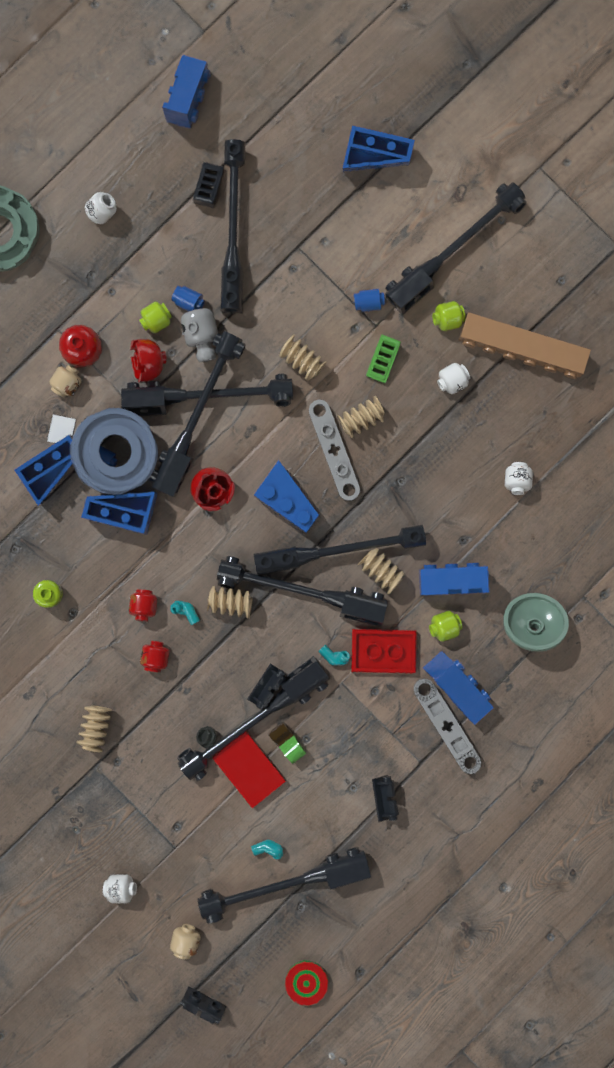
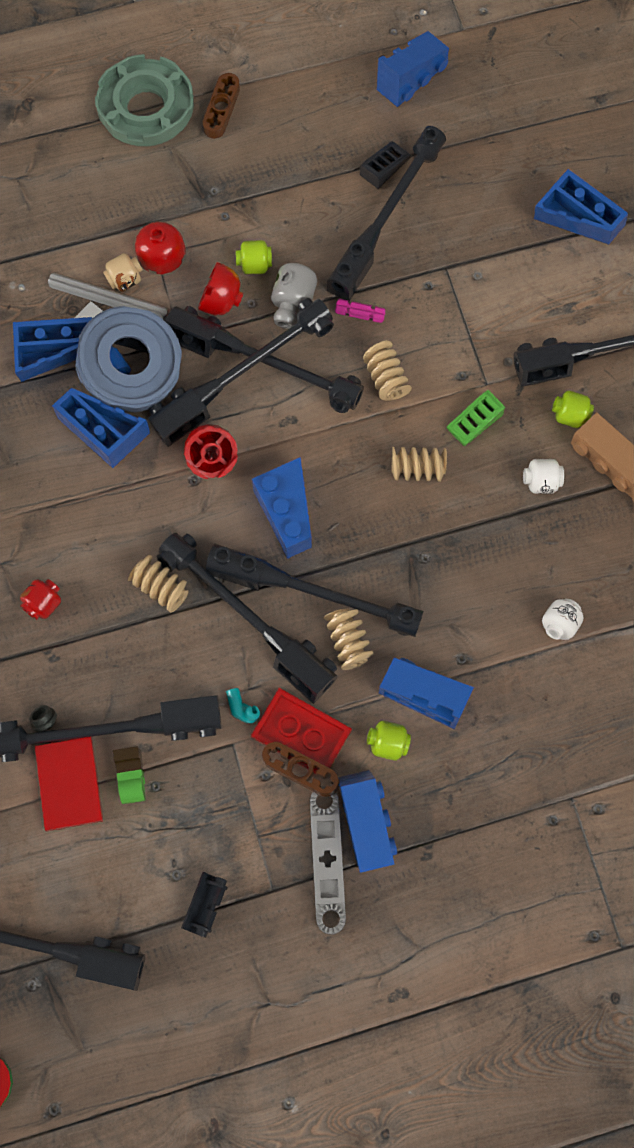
camera: 30 degrees right, 15 degrees down
(48, 195) = (220, 96): none -> reddish brown beam
(65, 406) = (102, 295): none -> light grey axle
(100, 207) = (261, 128): white head -> none
(143, 605) = (62, 536): red head -> none
(186, 609) = (106, 567): teal arm -> none
(187, 298) = (297, 252): blue brick -> none
(255, 317) = (360, 310): none -> dark pink axle
(266, 686) = (144, 698): black hinge -> none
(270, 847) = (38, 889): teal arm -> none
(329, 435) = (366, 503): light grey piece -> none
(369, 300) = (493, 351): blue brick -> none
(403, 670) = (322, 772): none -> reddish brown beam
(537, 612) = (498, 790): sand green dish -> none

